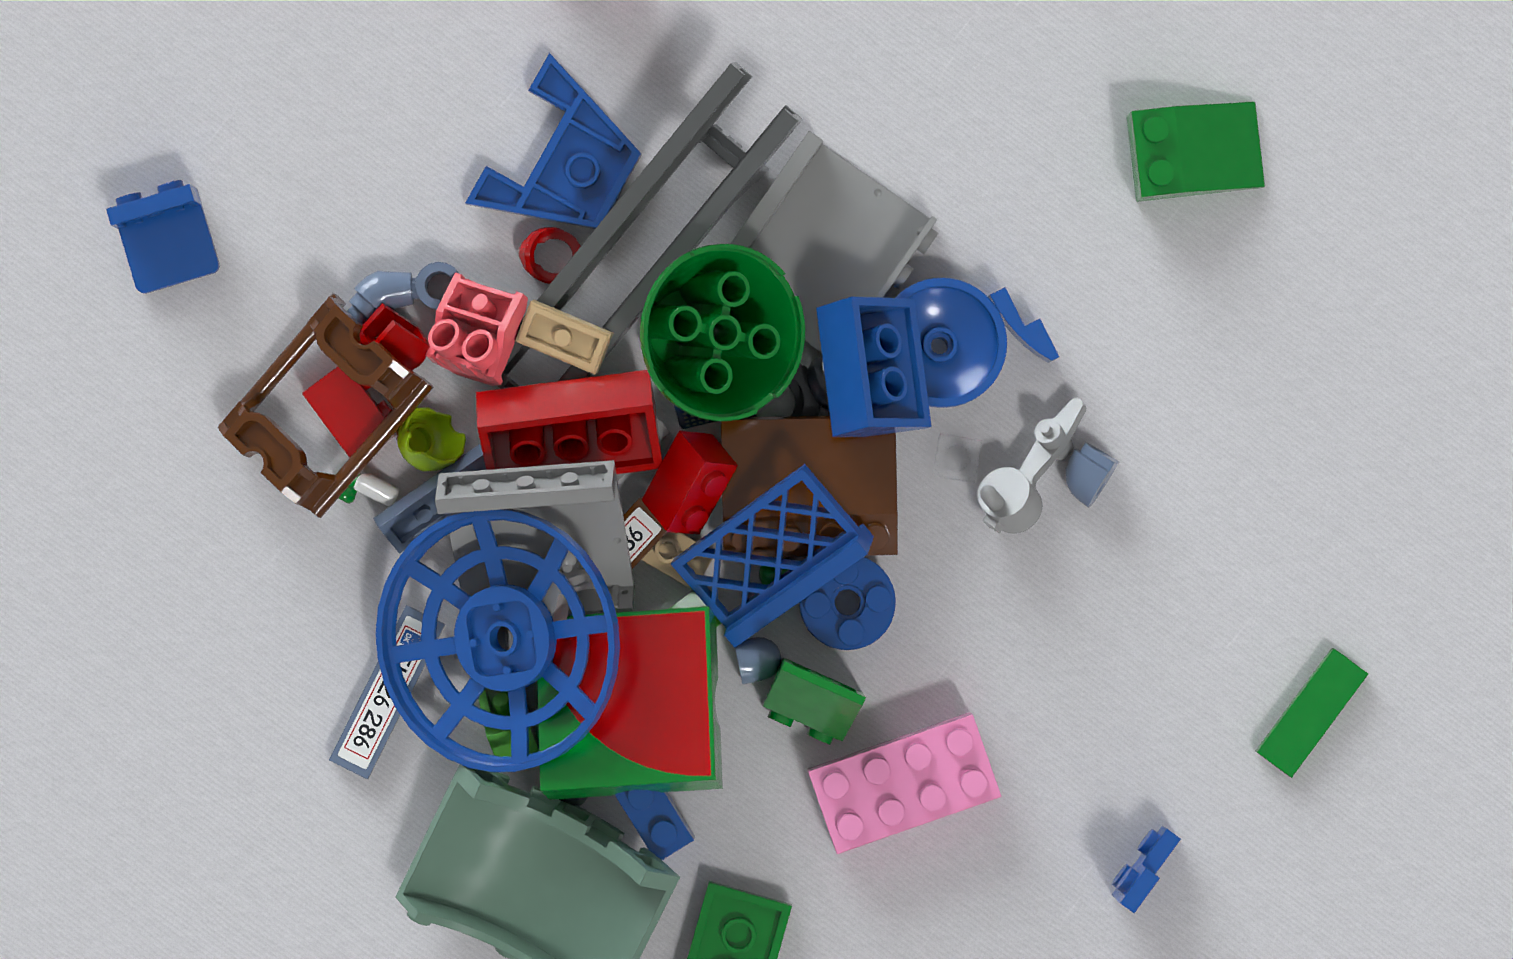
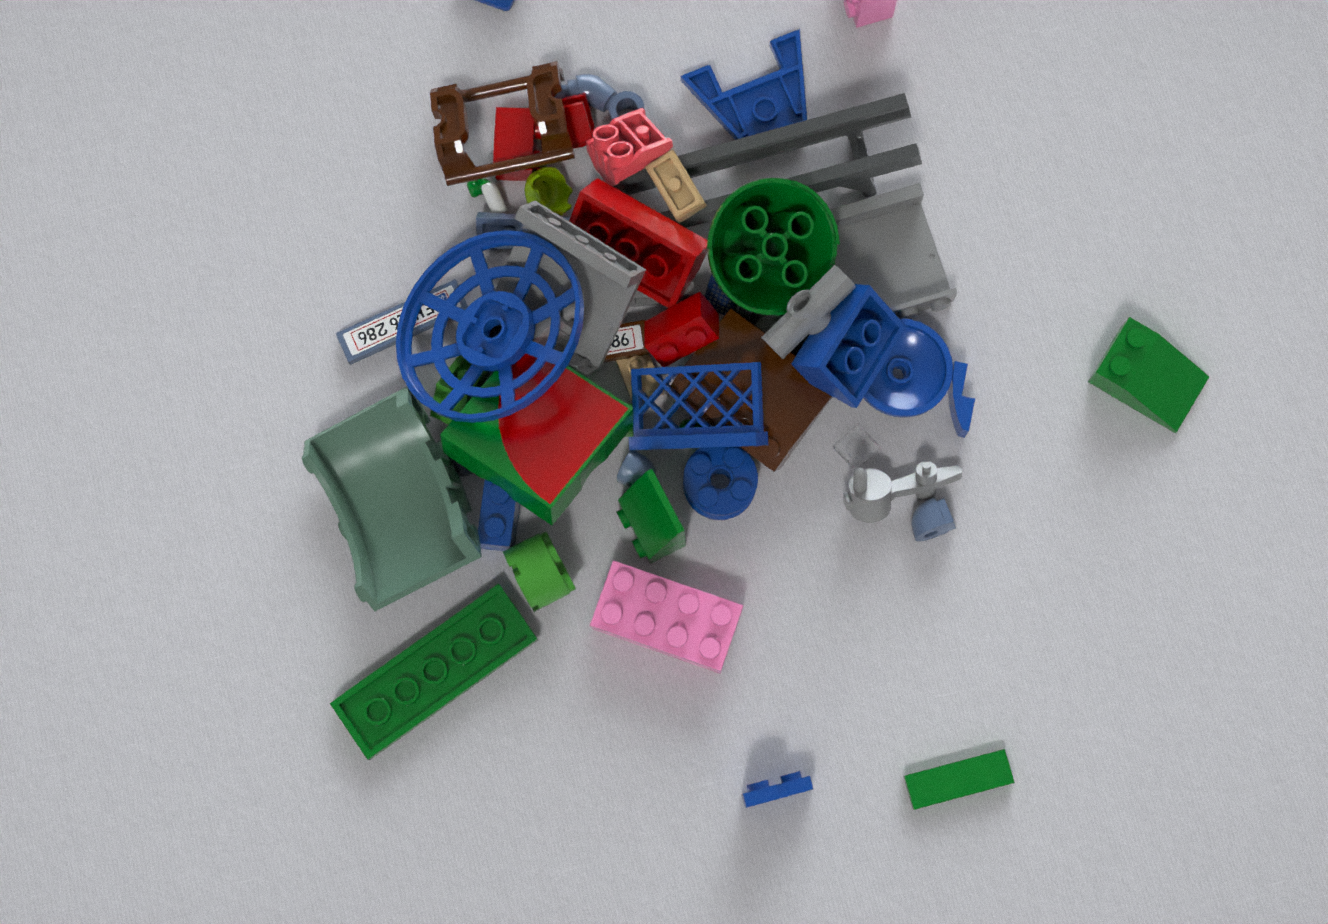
camera: 45 degrees right, 10 degrees down
(541, 235) = (703, 128): red piece -> none
(742, 839) = (539, 571): none -> bright green brick
(809, 370) = (809, 311): none -> light grey piece

